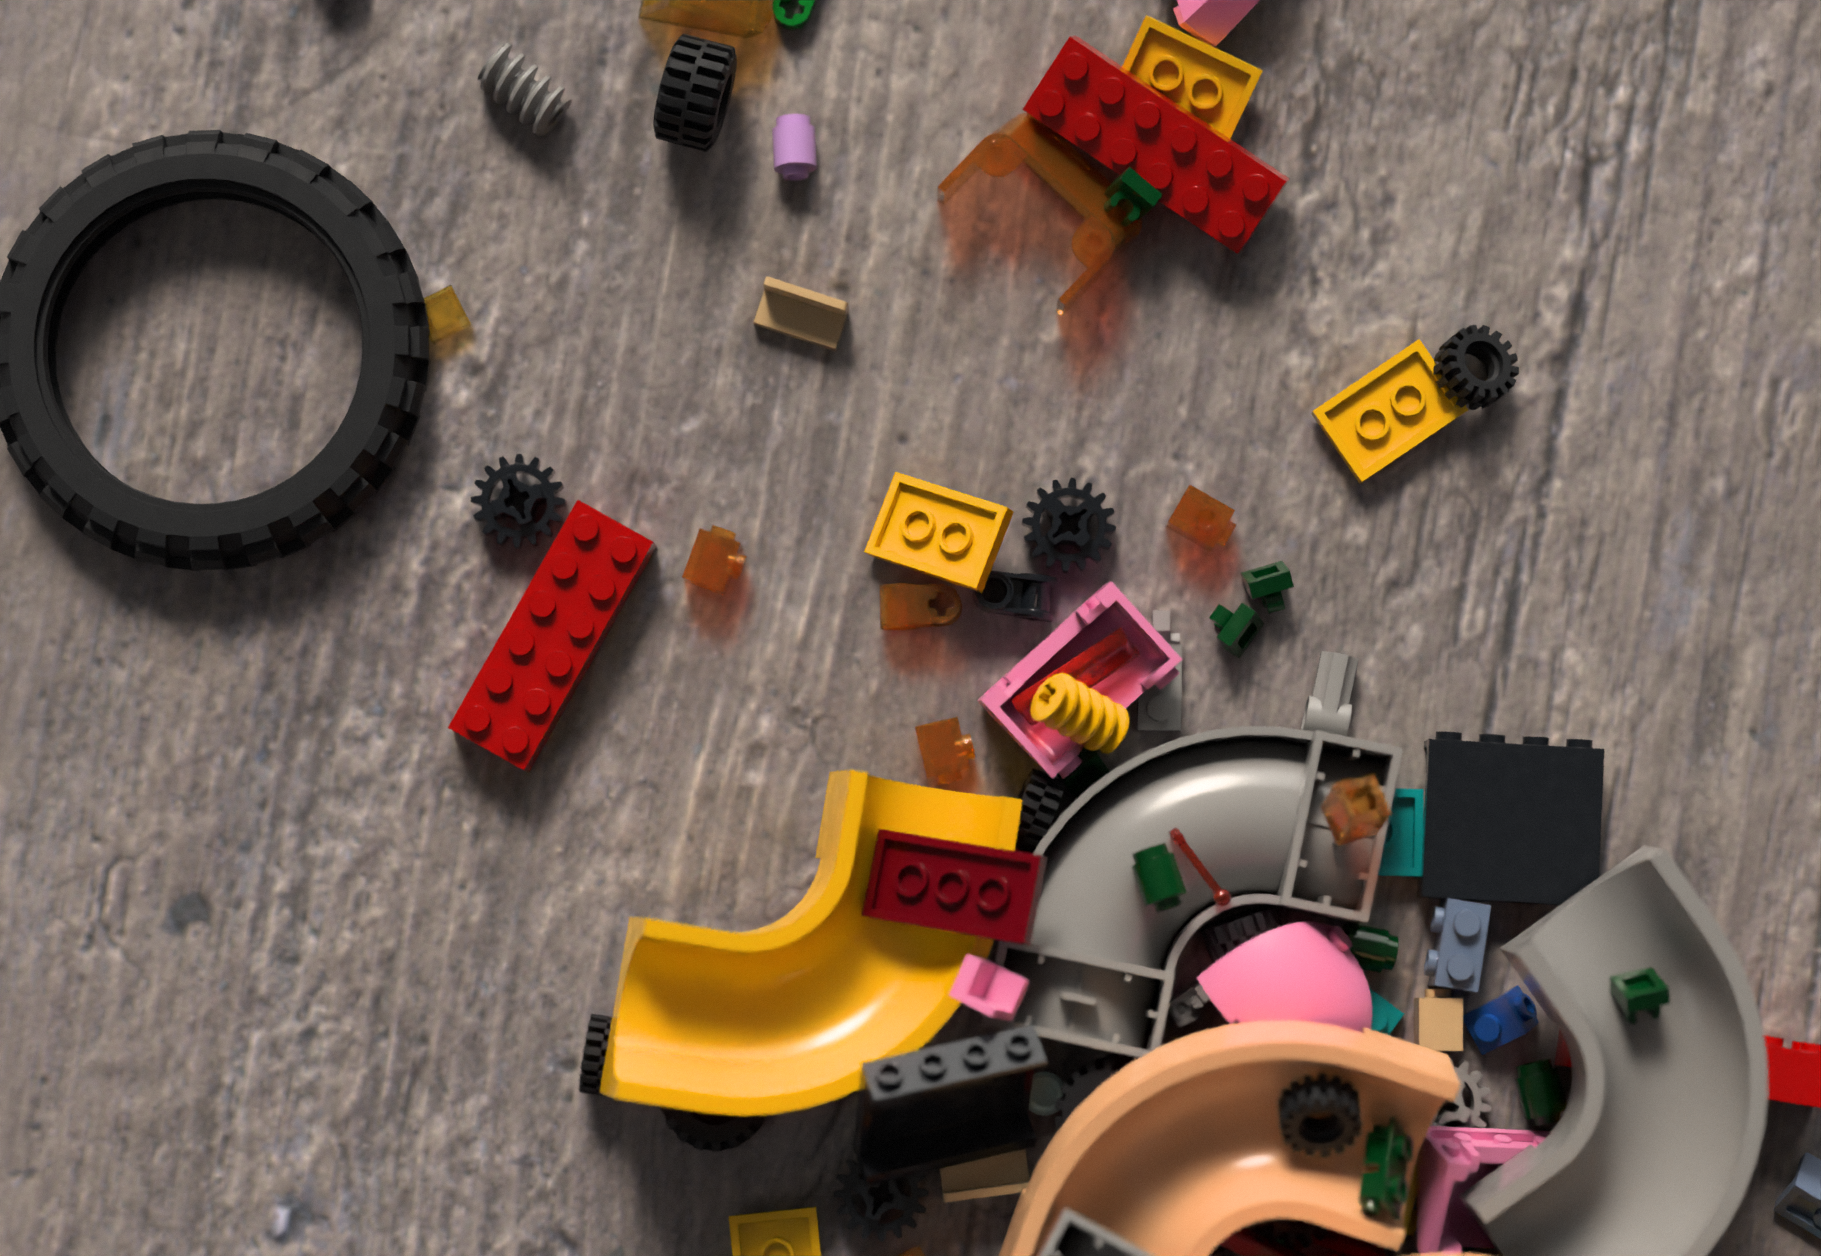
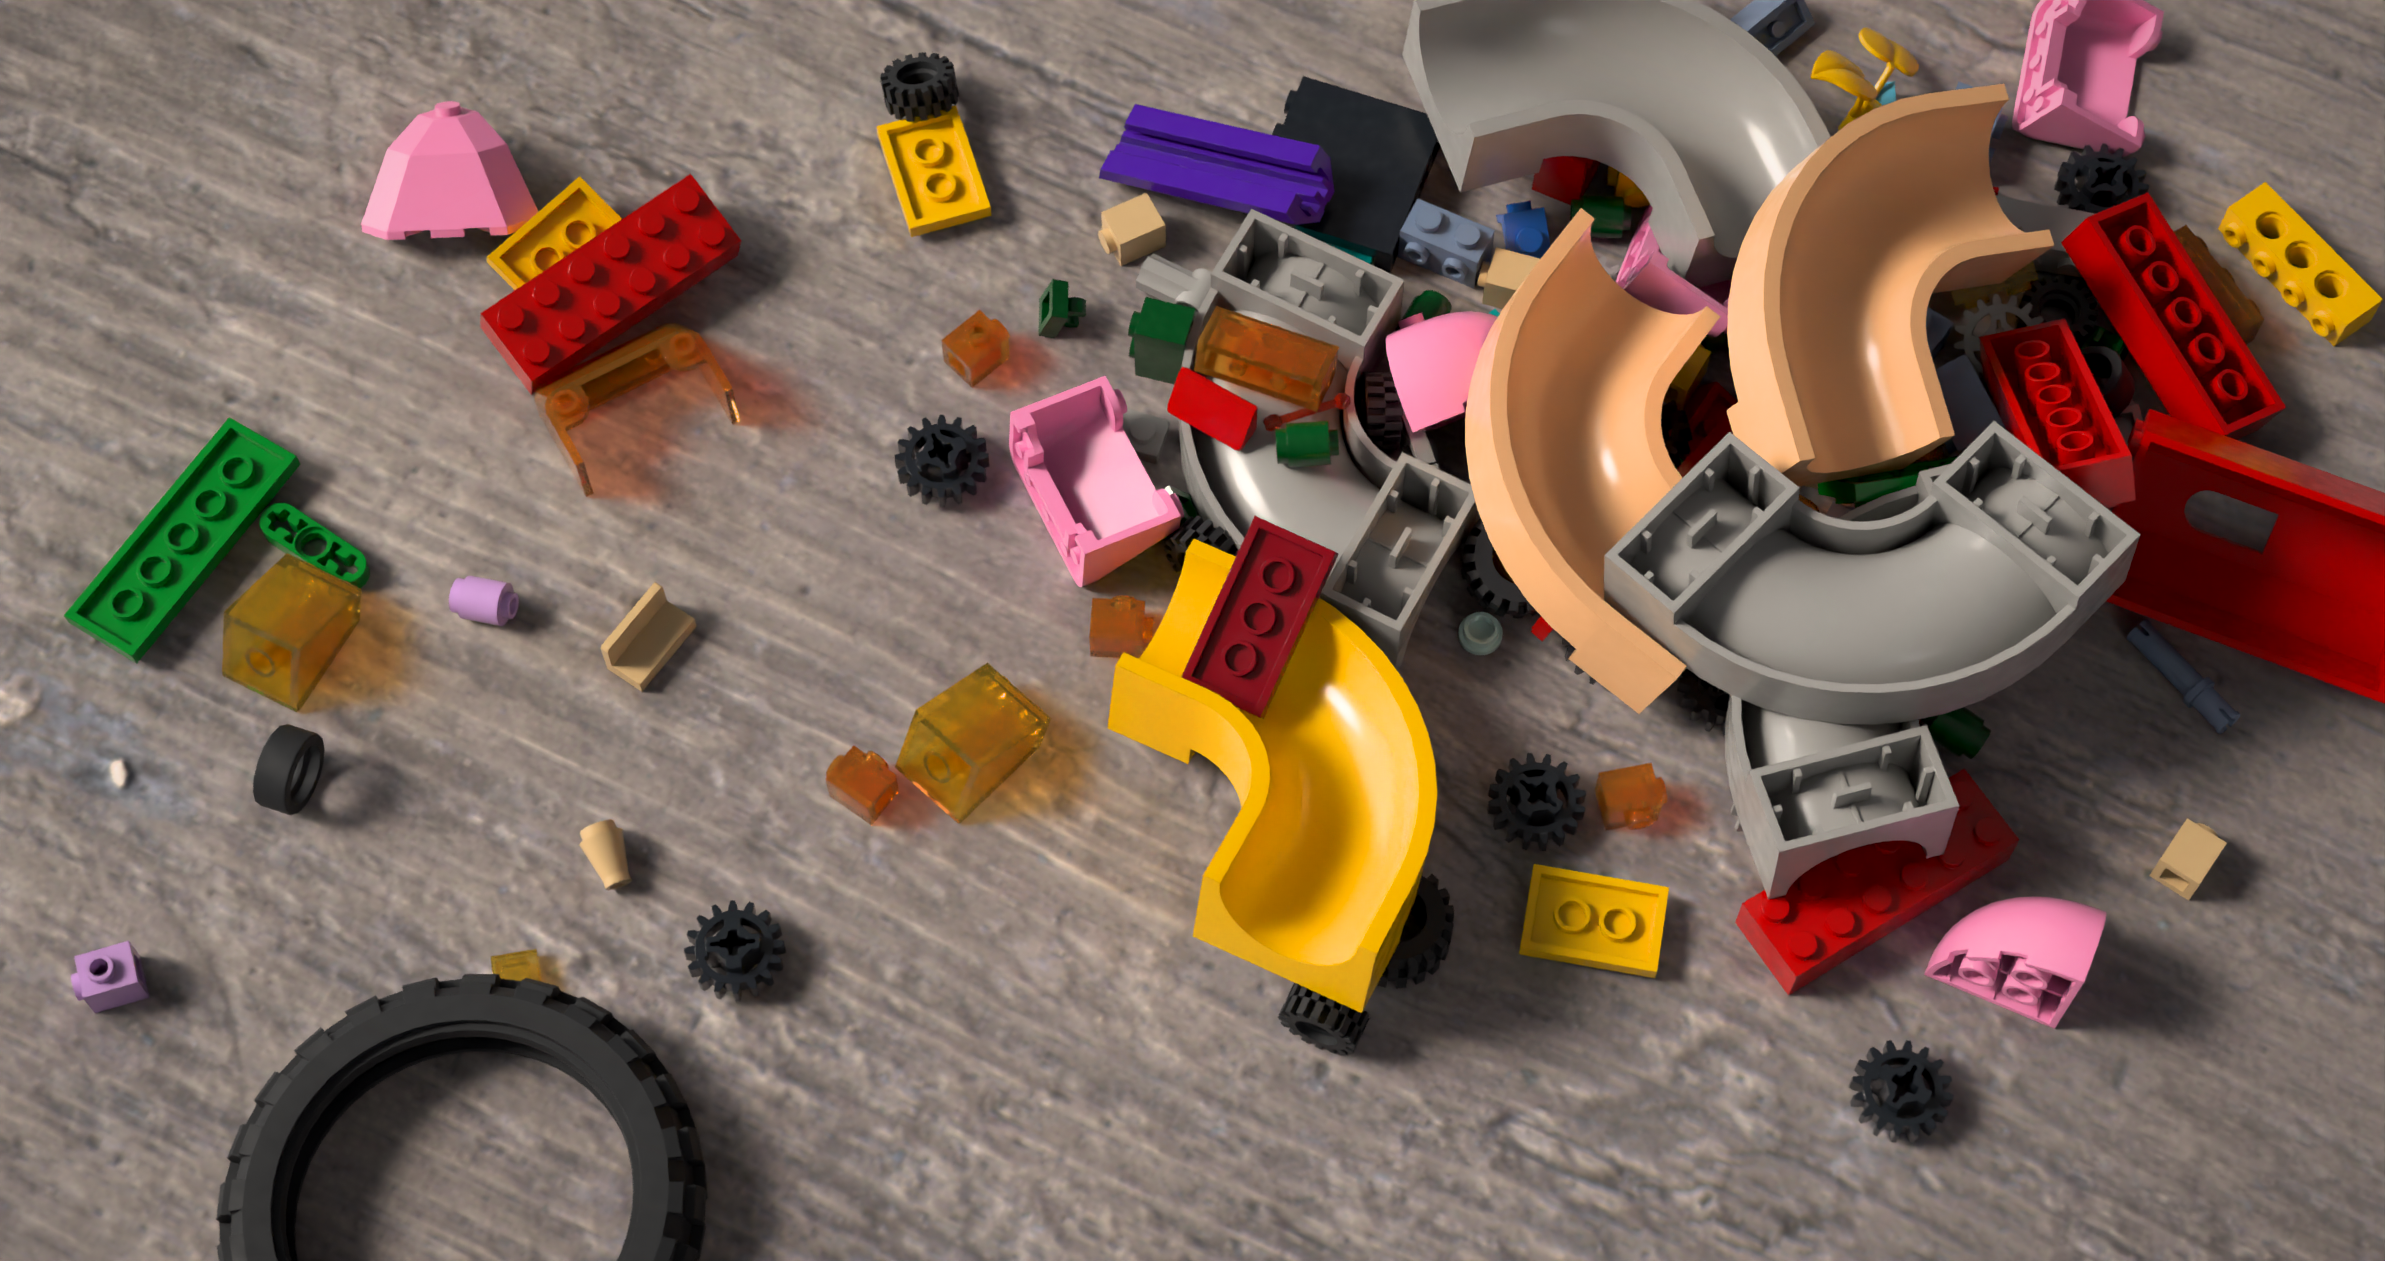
camera: 75 degrees left, 20 degrees down
(523, 91) = (322, 829): light grey piece -> none
(553, 636) = (884, 954): red brick -> none
(566, 37) = (288, 769): none -> black tyre
(580, 351) = (606, 852): none -> tan cone
(694, 92) = (394, 660): black tyre -> none
(786, 649) = (970, 741): none -> clear yellow slope
(908, 606) = (971, 616): clear orange piece -> none
(939, 532) = (907, 567): yellow plate -> none
(946, 1104) = (1468, 694): black panel -> none
(986, 1177) = (1543, 707): tan panel -> none
(989, 988) = (1368, 606): bright pink panel -> none
(1020, 596) = (993, 519): black piece -> none
(1080, 713) = (1127, 474): yellow piece -> none
(1088, 667) = (1089, 476): clear red tile -> none
(1132, 195) = (651, 310): dark green tile -> none
(1168, 775) = (1212, 409): none -> red slope
(1237, 628) = (1087, 348): dark green tile -> none
(1238, 812) = (1266, 358): none -> clear orange brick
(1254, 697) = (1160, 339): none -> dark green brick
(1320, 1097) = (1558, 352): black tyre -> none
(1355, 809) = (1296, 247): clear orange brick -> none
(1380, 628) = (1132, 229): none -> tan brick
(1390, 1151) = (1657, 313): dark green hinge -> none
(1462, 698) = (1221, 165): none -> dark purple piece
(1638, 992) = (1537, 73): dark green tile -> none

